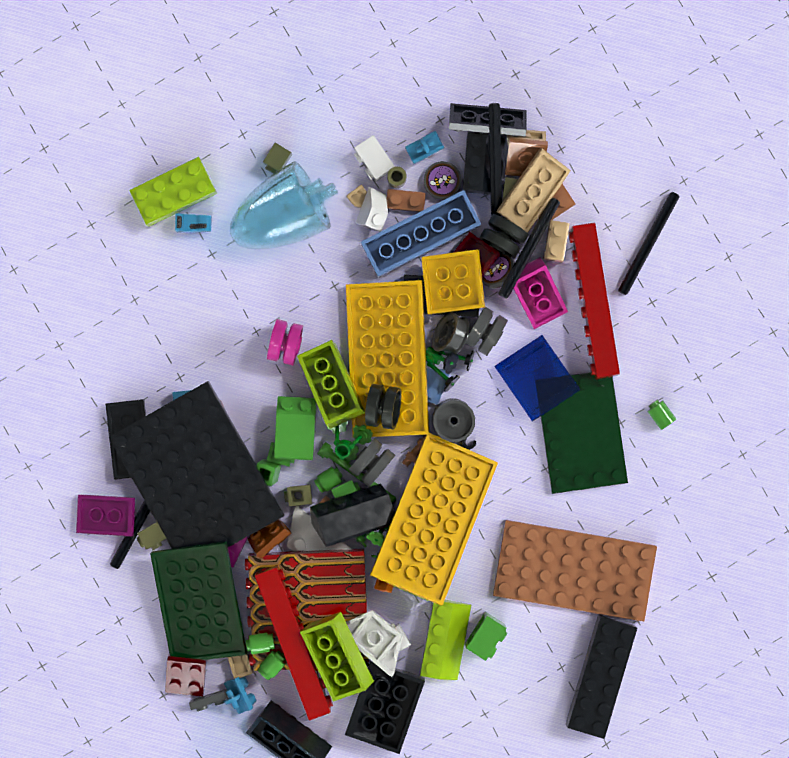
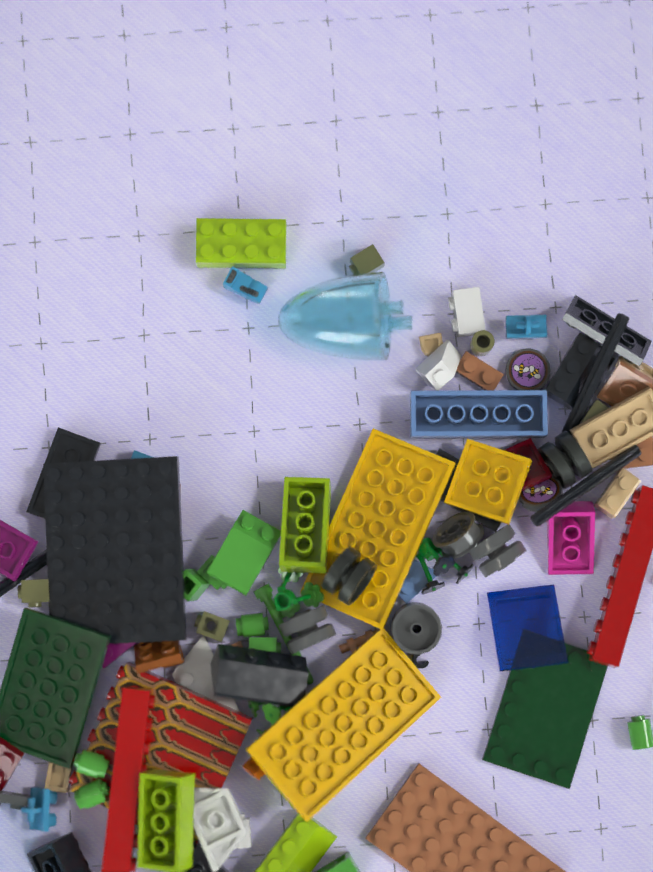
camera: 25 degrees right, 5 degrees down
(281, 341) = (282, 459): dark pink wheel -> none

